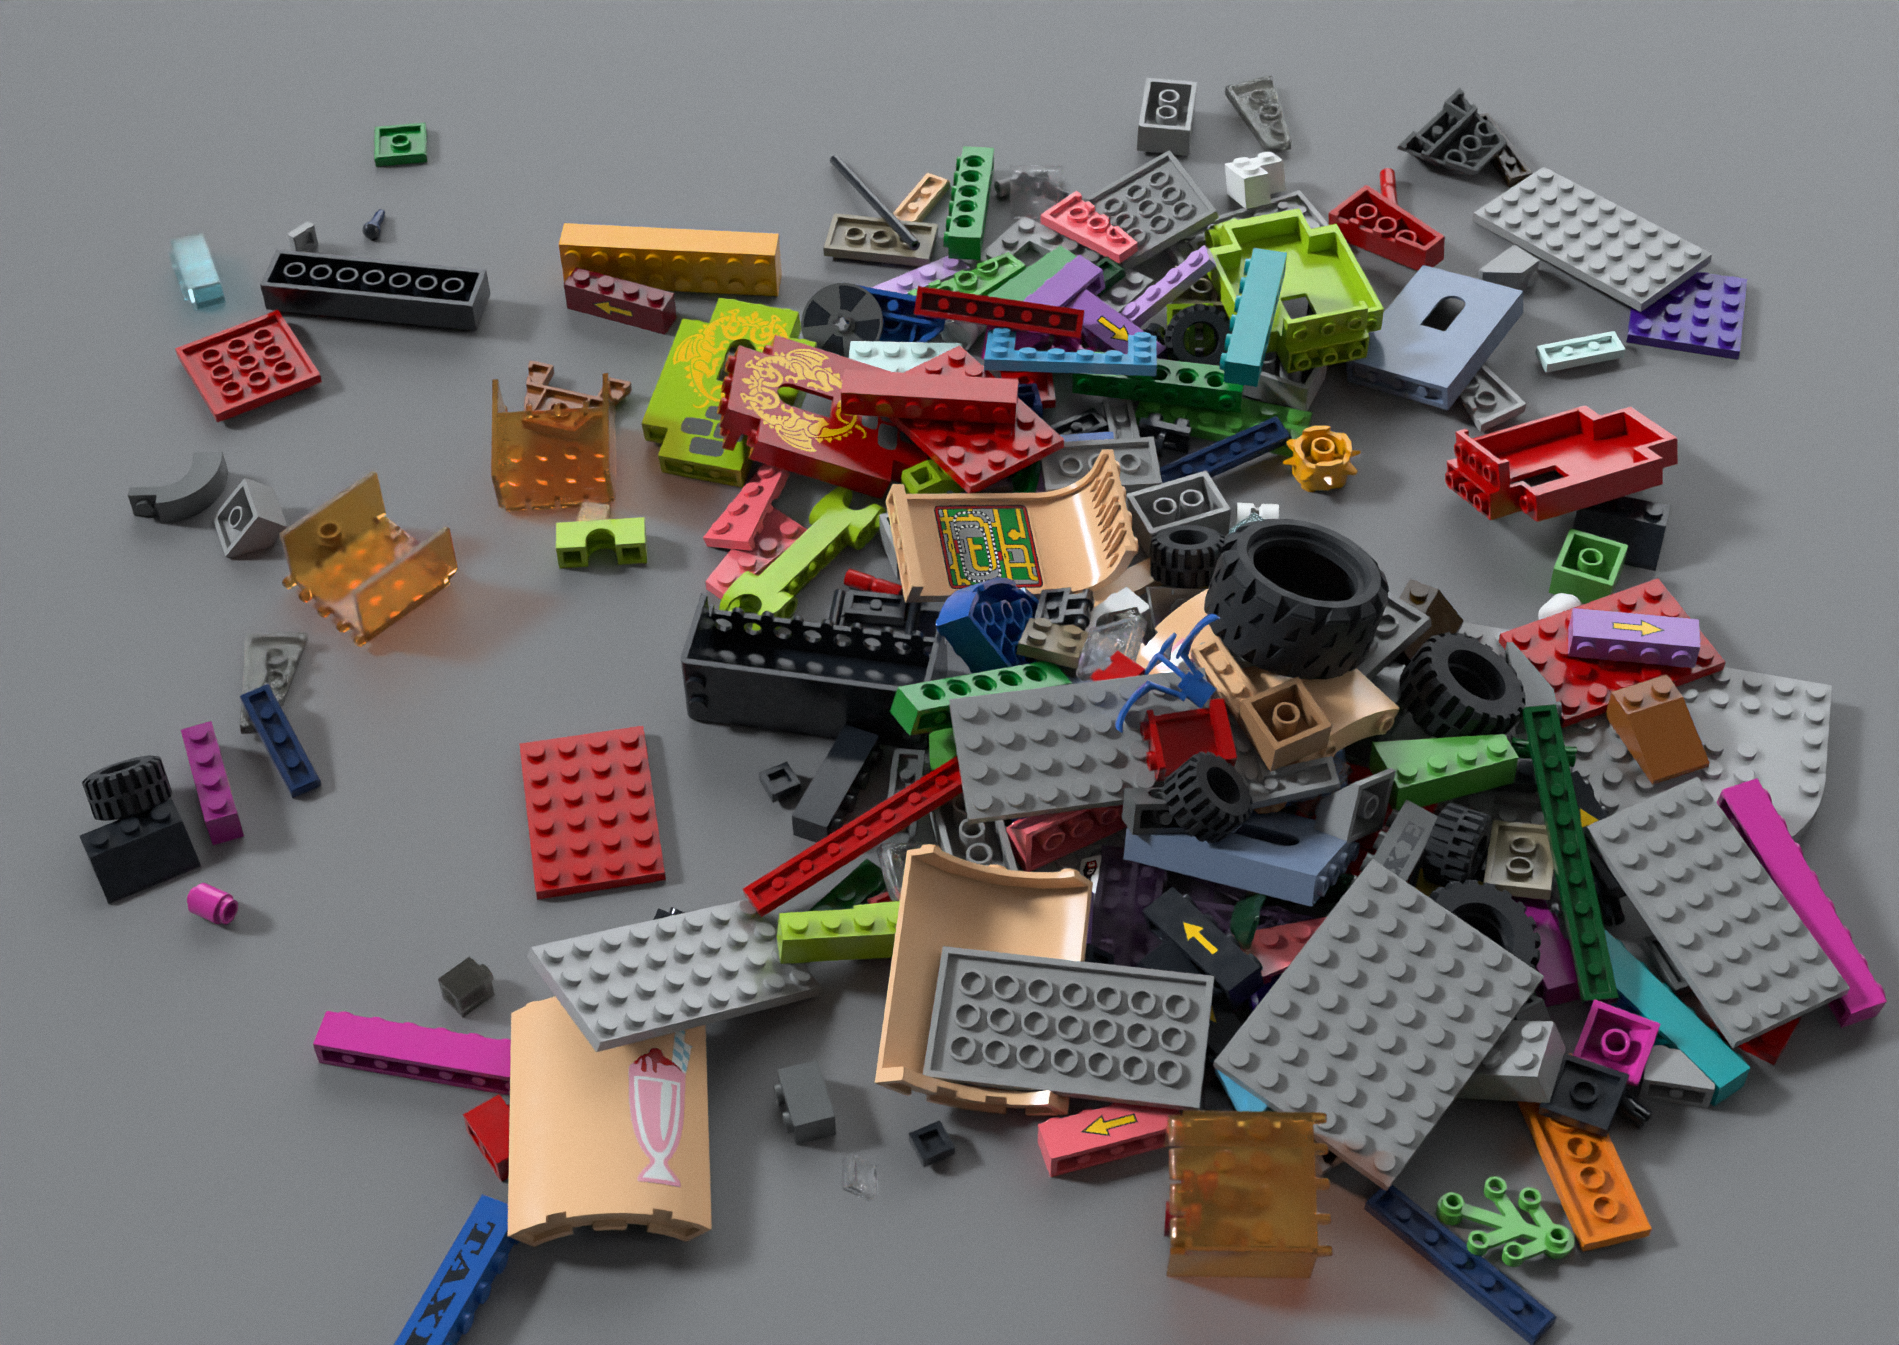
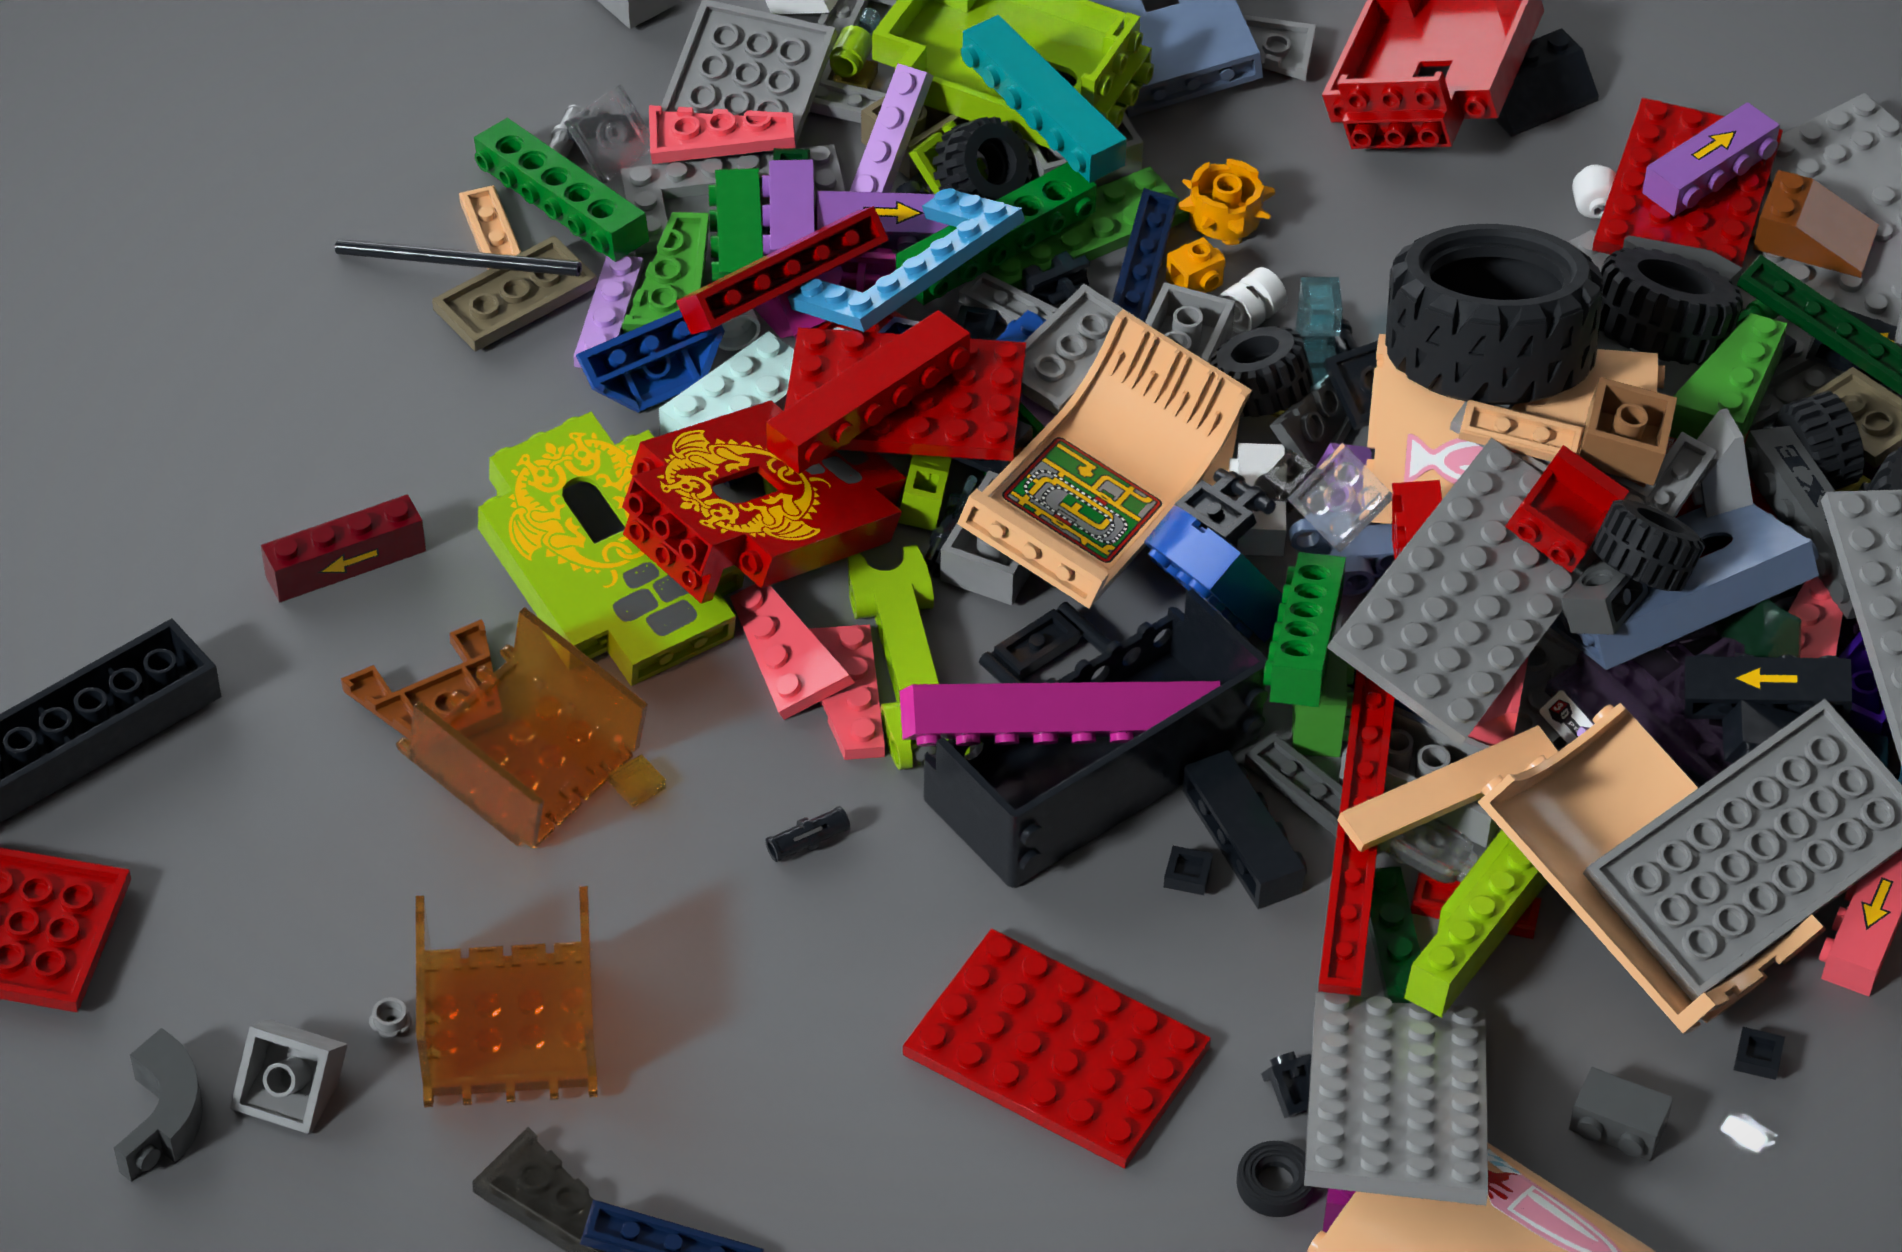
camera: 50 degrees left, 0 degrees up
(581, 538) = (708, 771): lime arch -> none
(610, 602) = (784, 844): none -> black pin
(676, 258) = (345, 463): light orange brick -> none
(787, 624) = (1041, 710): none -> dark pink brick
(841, 301) = (611, 371): piece -> none
(870, 584) = (998, 627): red piece -> none
(908, 834) = (1441, 790): none -> light nougat tile
(1052, 642) = (1276, 536): dark tan plate -> none
(1193, 686) = (1498, 504): blue plant -> none
(1249, 482) = (1196, 266): none -> light orange brick
(1588, 566) = (1566, 133): bright green brick -> none

